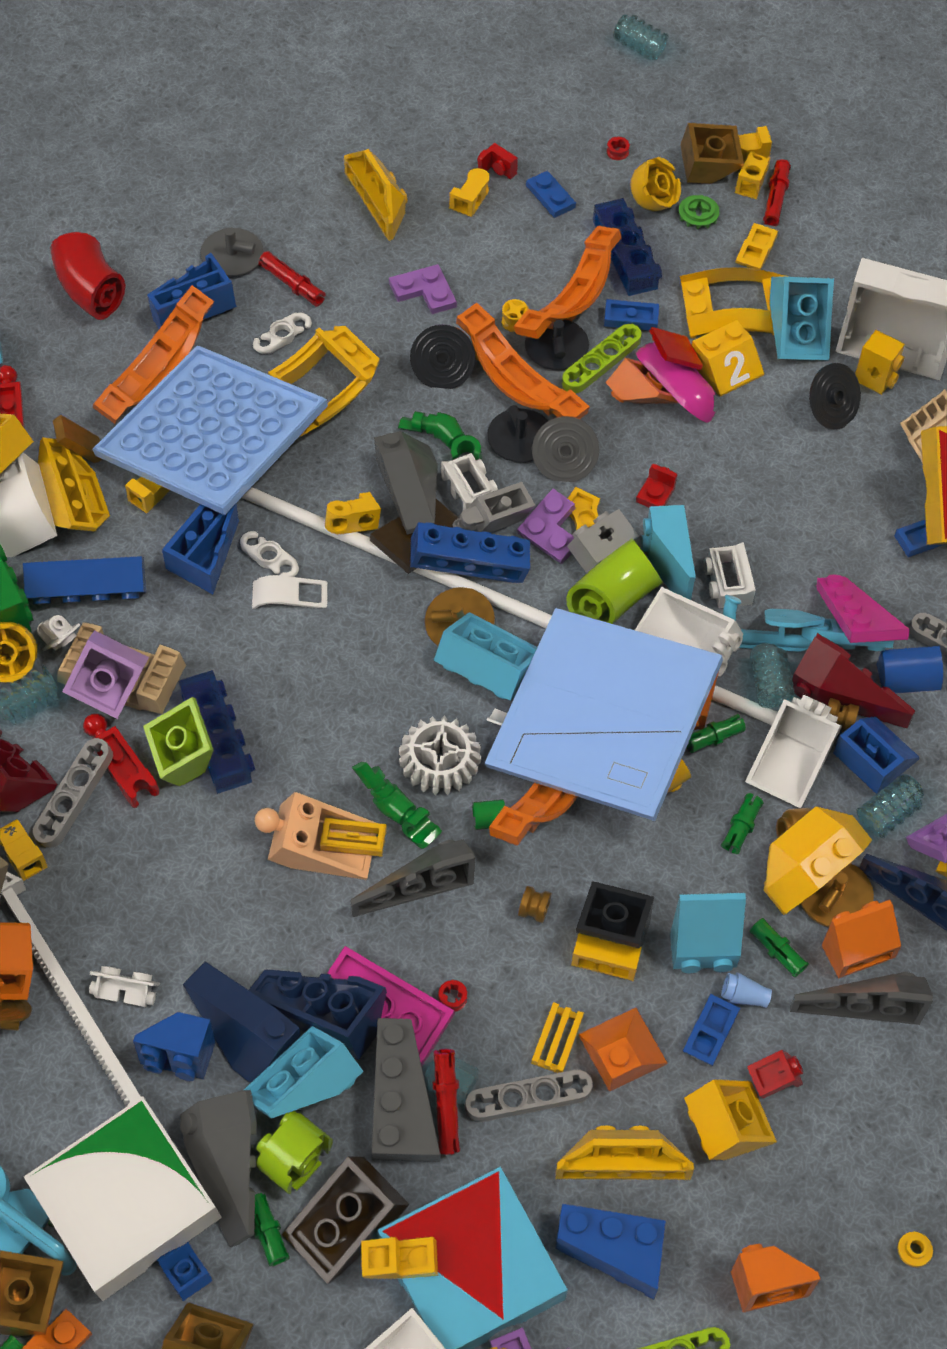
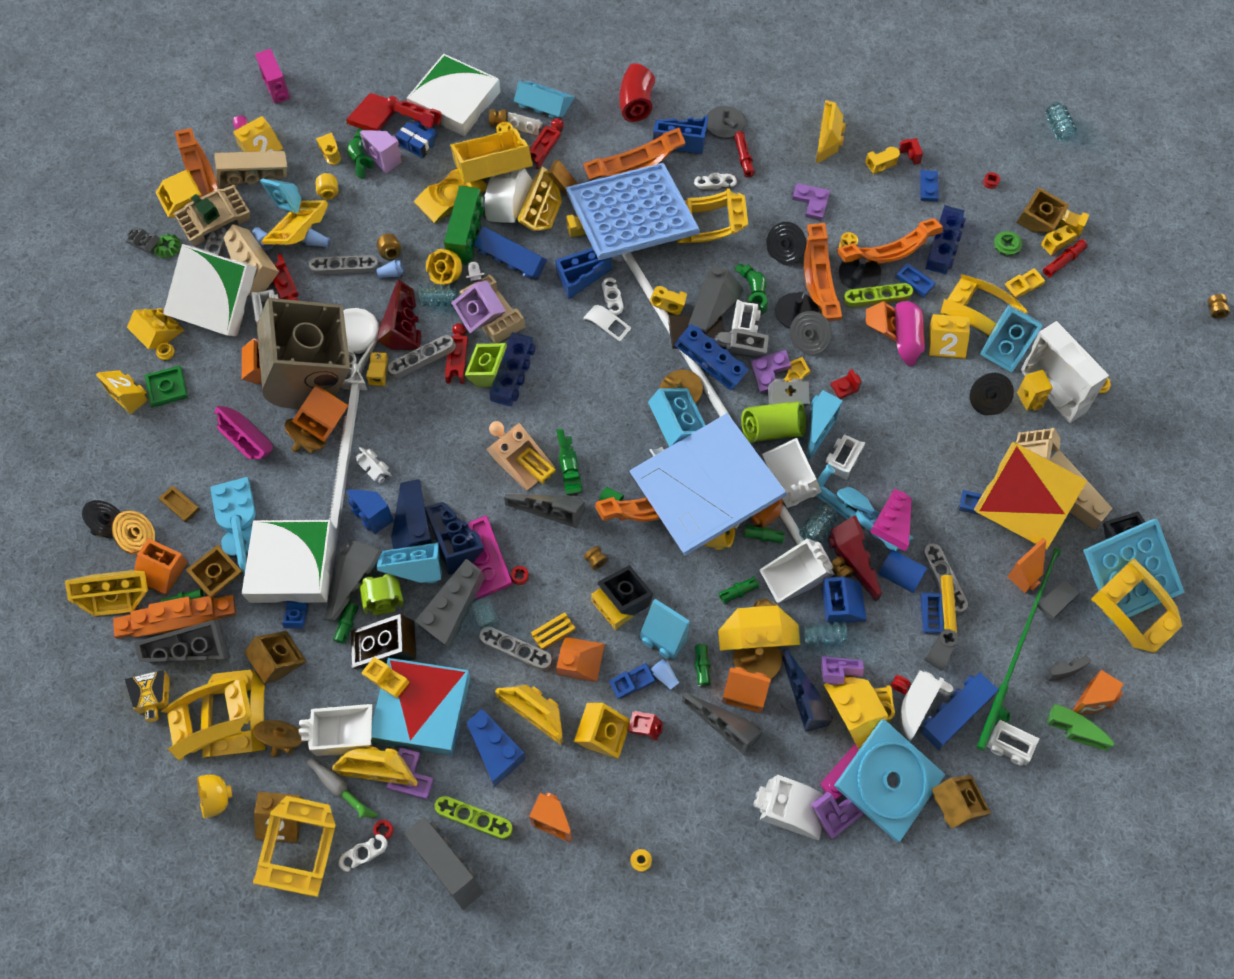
camera: 40 degrees right, 5 degrees up
(416, 748) = (611, 461): white gear -> none
(446, 1092) = (472, 614): red pin -> none
(655, 185) = (991, 213): yellow cylinder -> none
(675, 348) = (918, 312): red piece -> none

